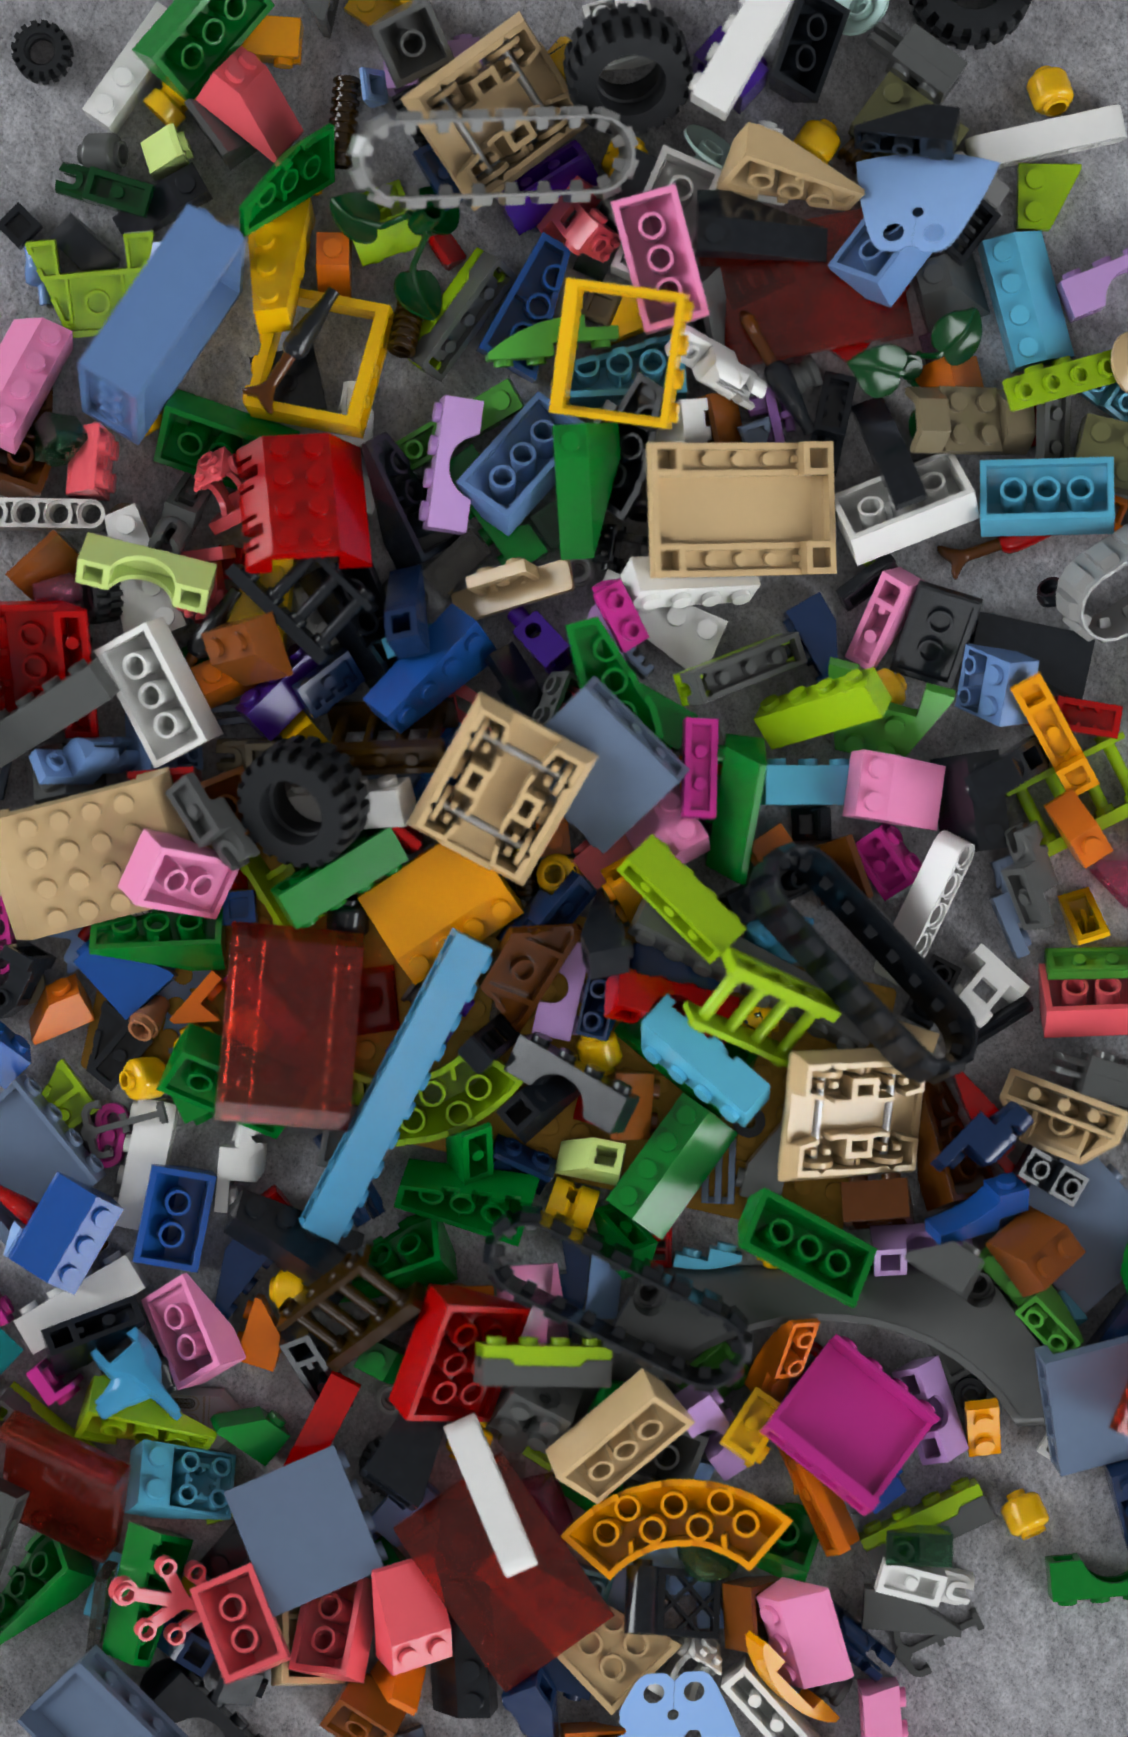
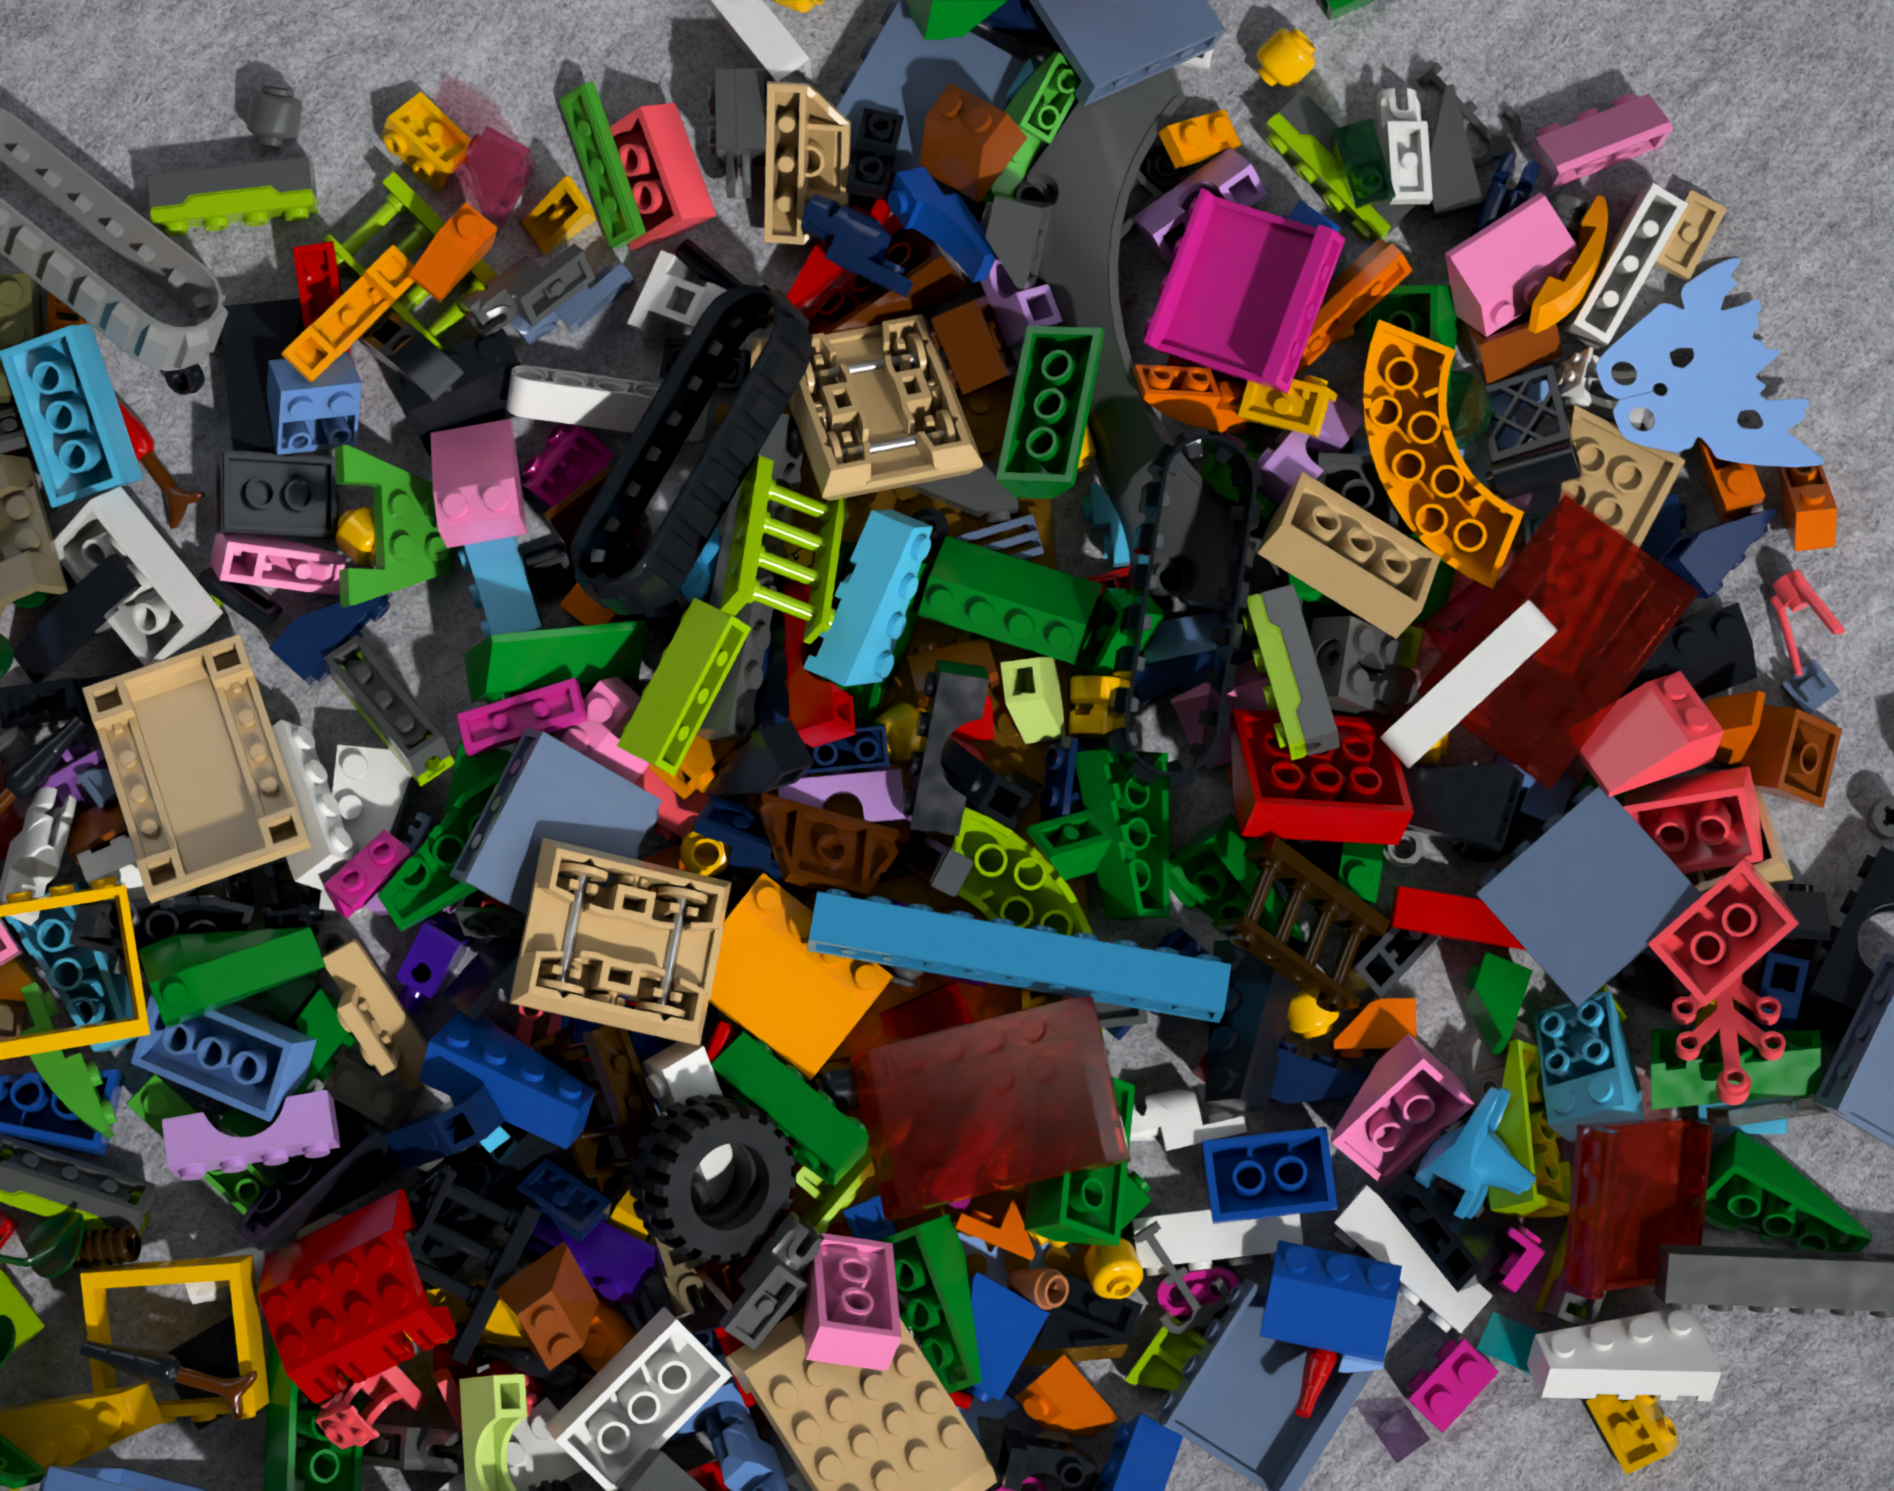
camera: 105 degrees left, 5 degrees down
(334, 262) = (49, 1363): orange slope -> none
(822, 708) = (405, 597): lime brick -> none

